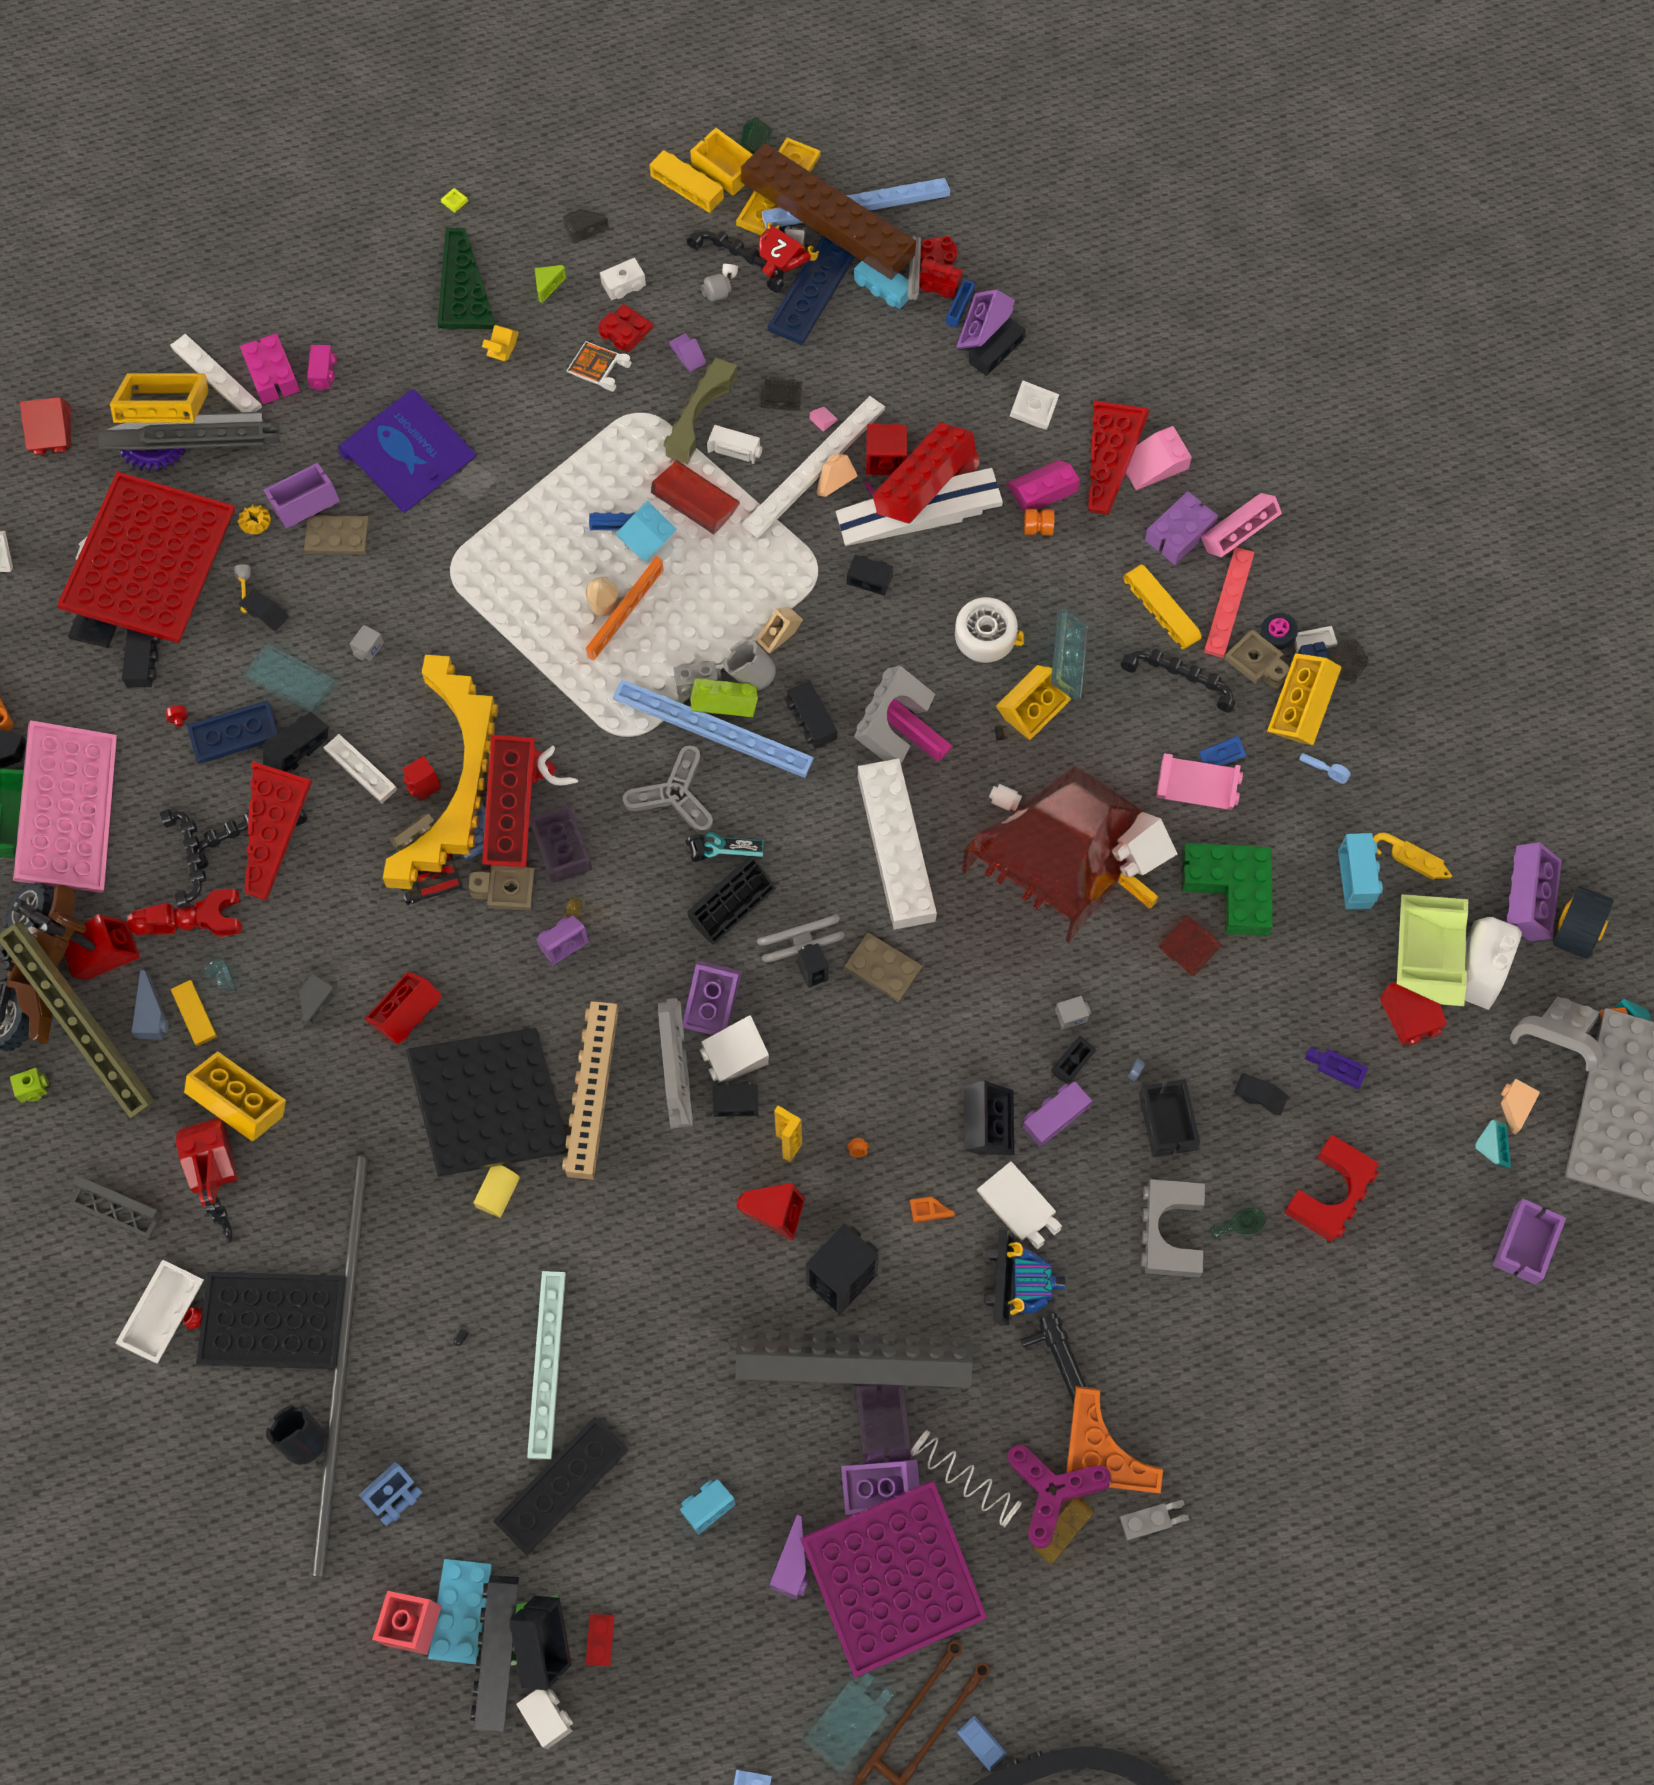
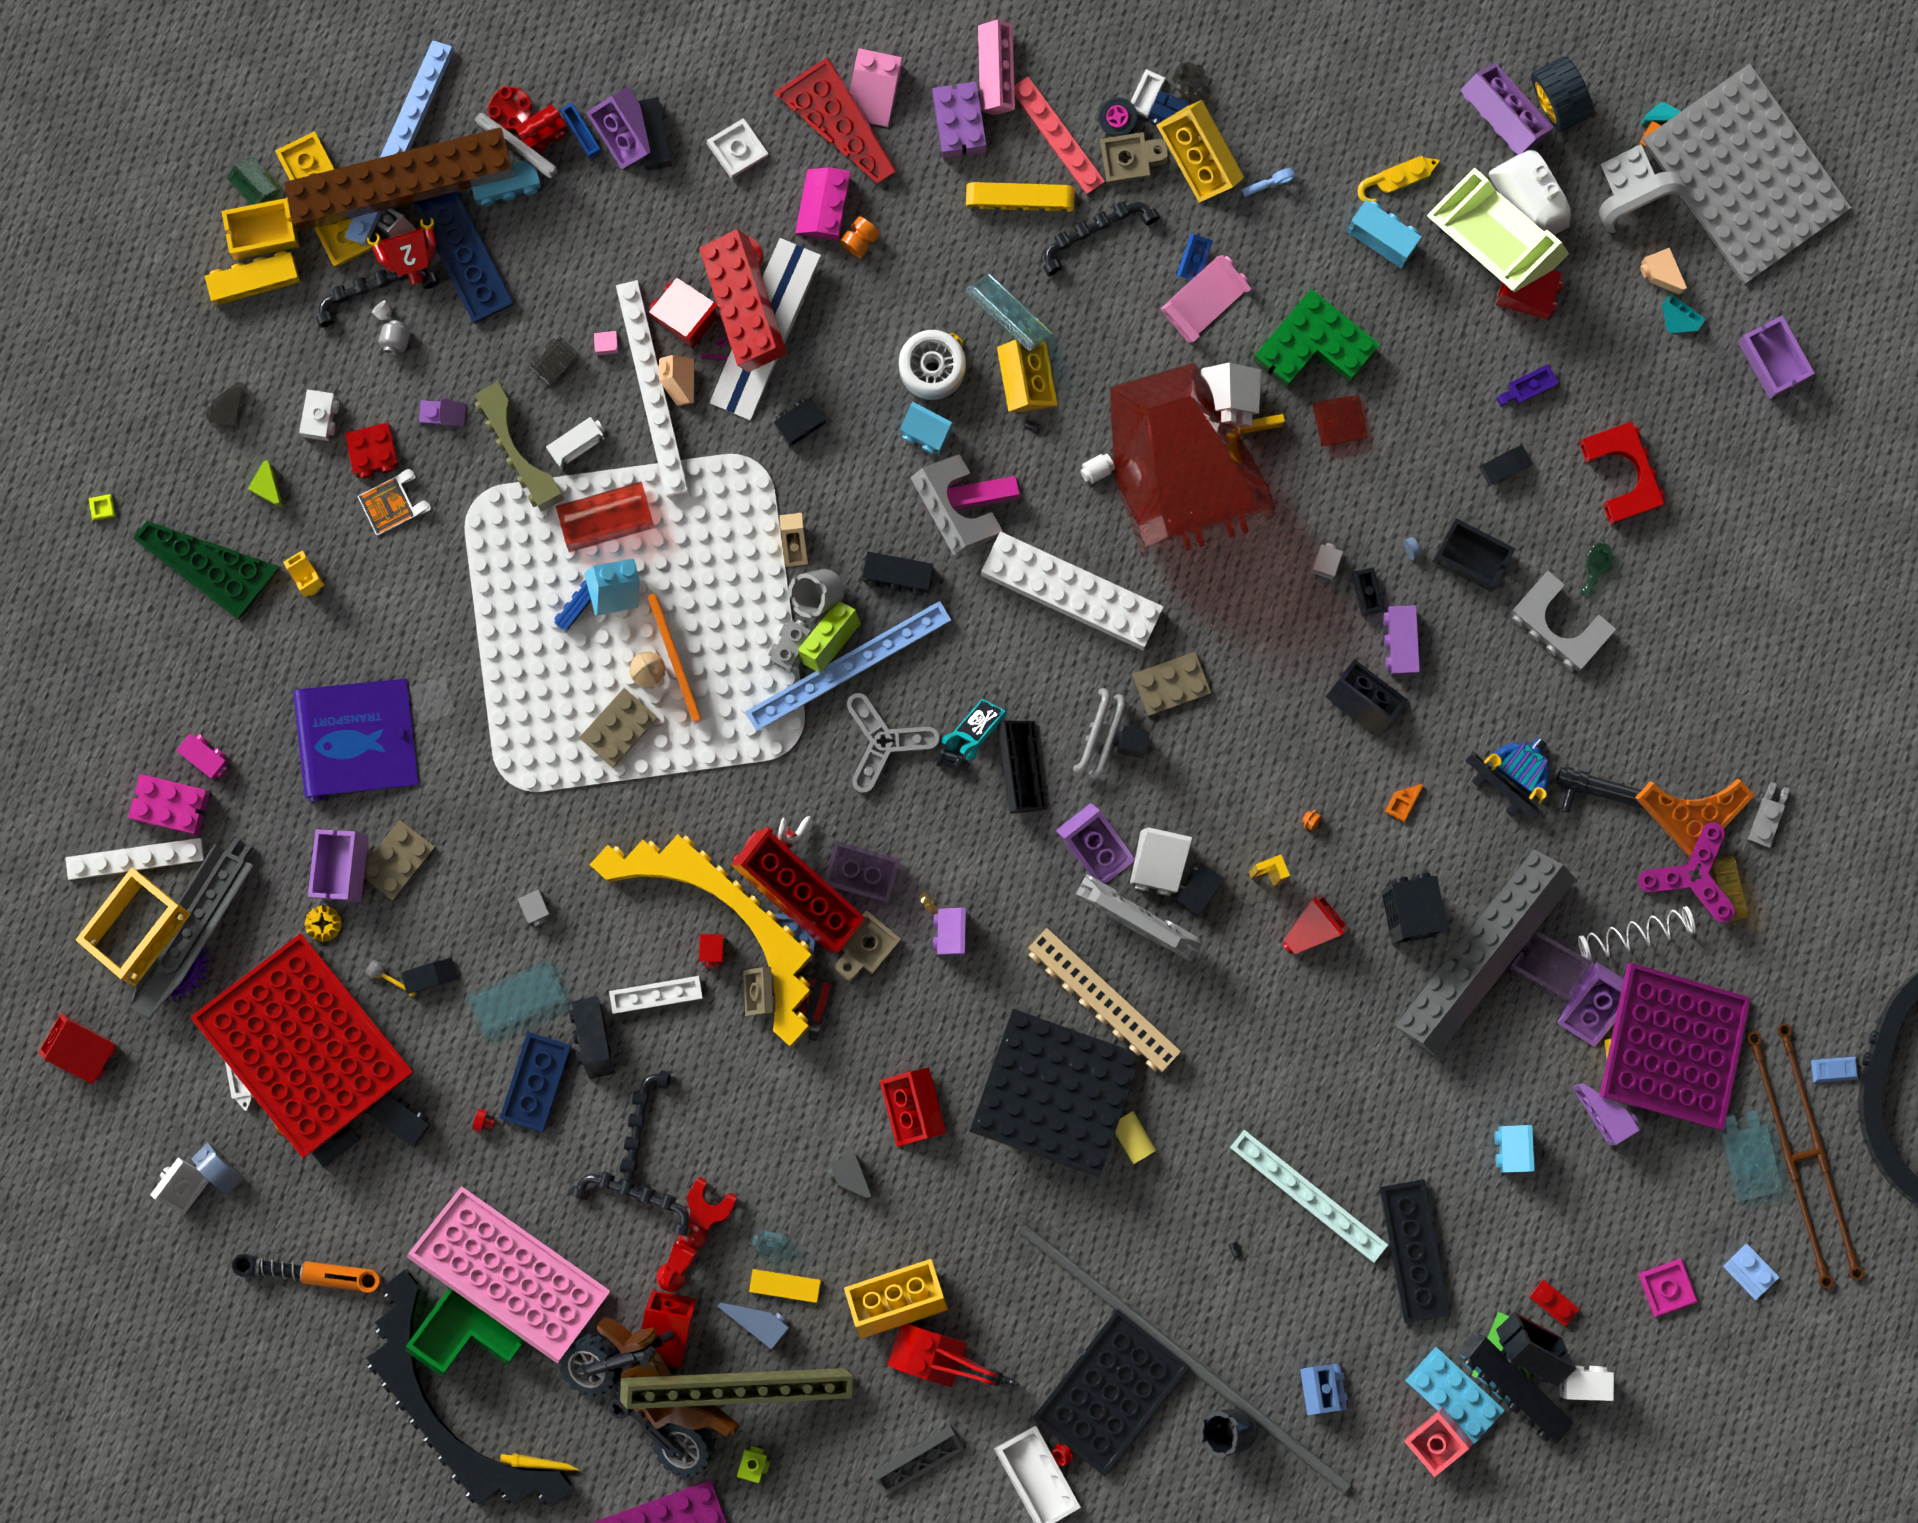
camera: 55 degrees left, 15 degrees up
(16, 567) = (216, 1169): none -> sand blue brick
(273, 814) = (652, 1099): red wing -> none
(545, 608) = (618, 727): none -> dark tan plate
(683, 1733) = (1667, 1287): none -> dark pink tile
(934, 658) = (925, 428): none -> medium azure slope
(1019, 1205) = (1452, 727): white tile -> none

